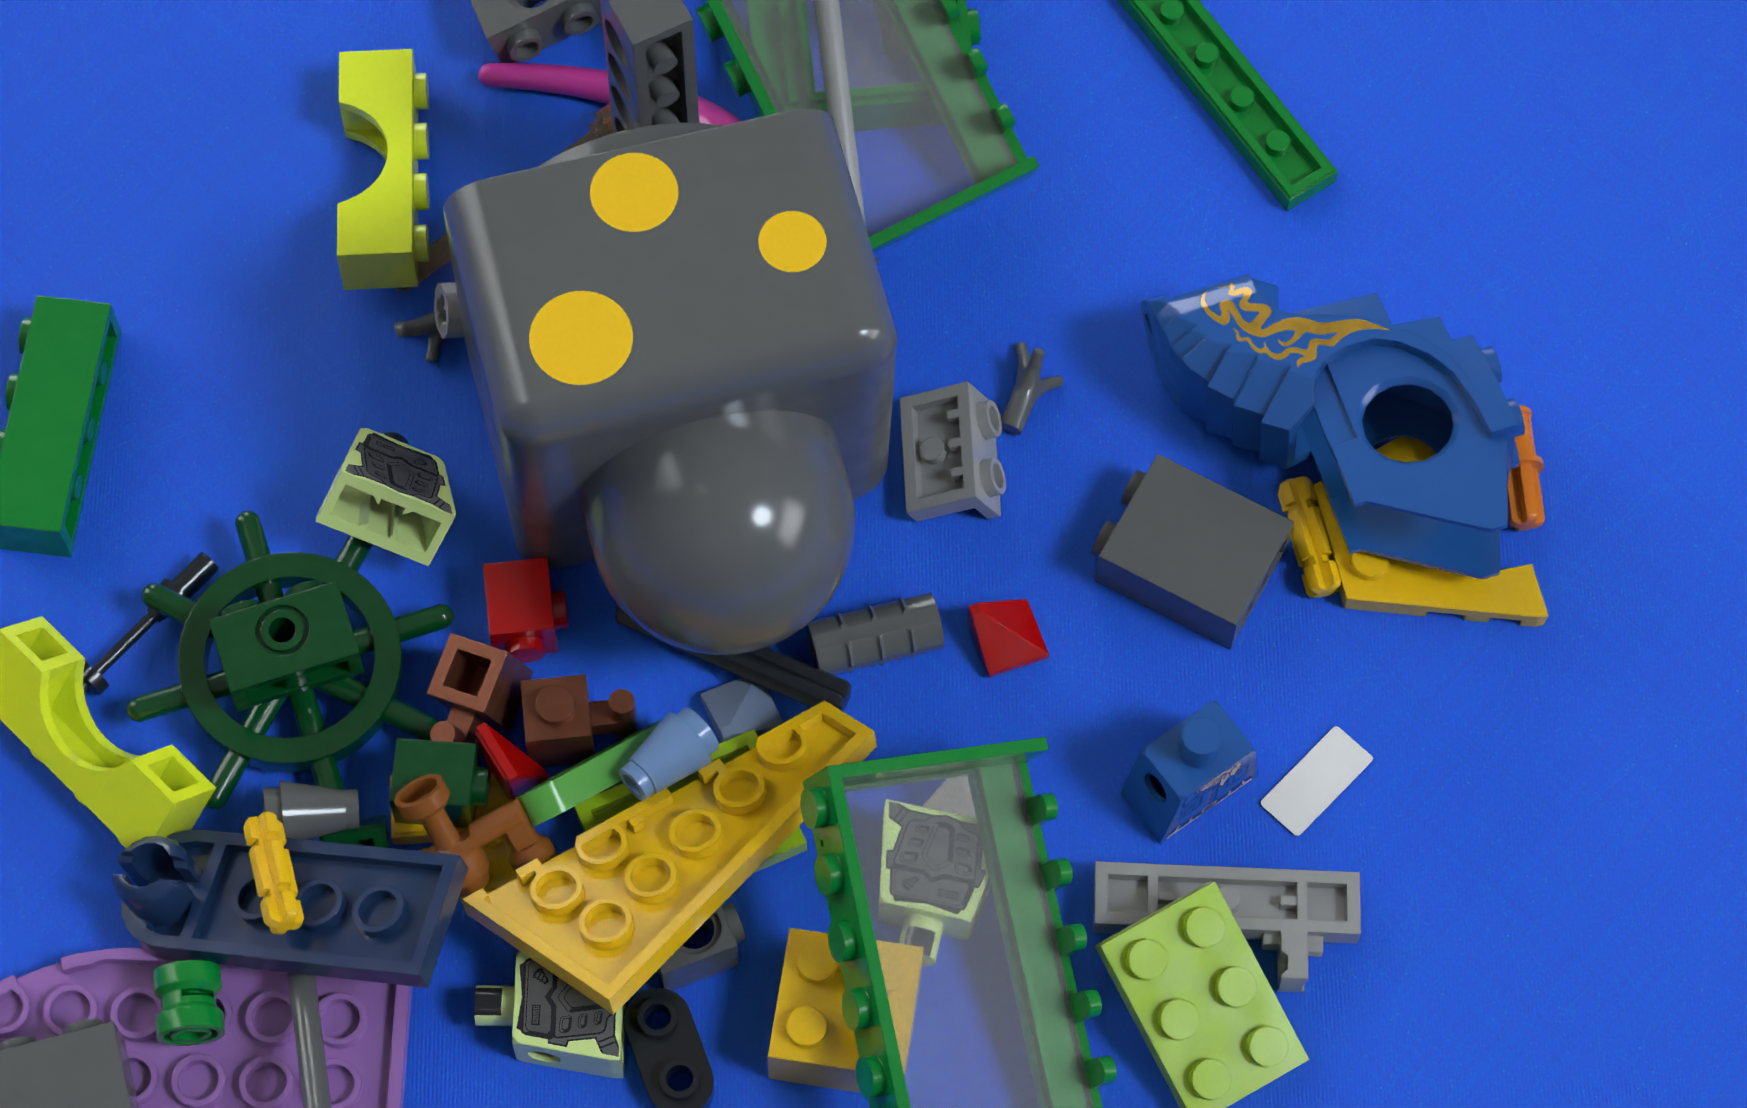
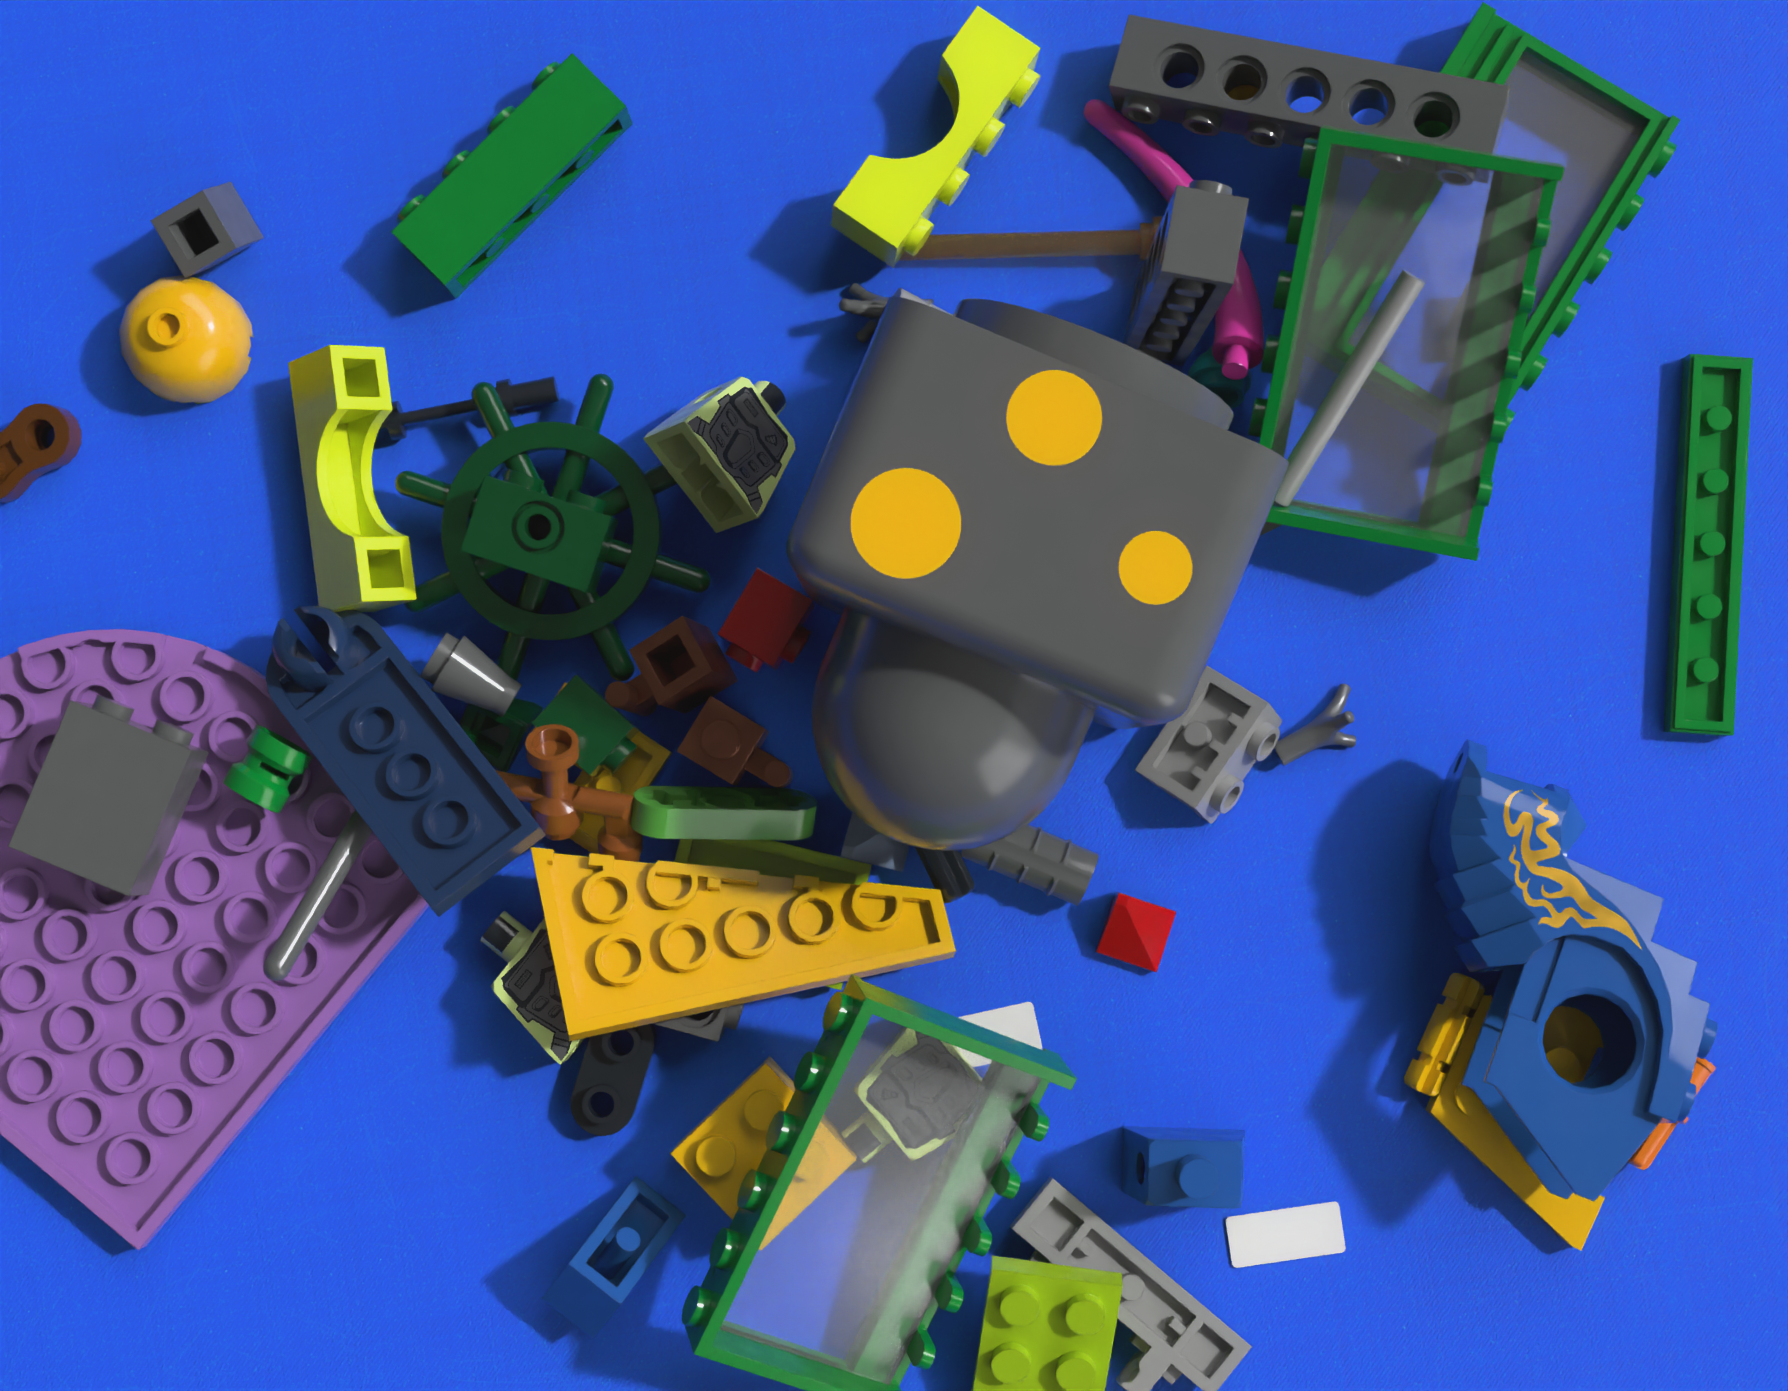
camera: 40 degrees right, 20 degrees up
(273, 873) = (394, 722): yellow axle -> none
(508, 764) = (655, 752): red slope -> none
(670, 753) = (778, 849): medium blue cone -> none
(1191, 550) = (1338, 978): dark grey brick -> none

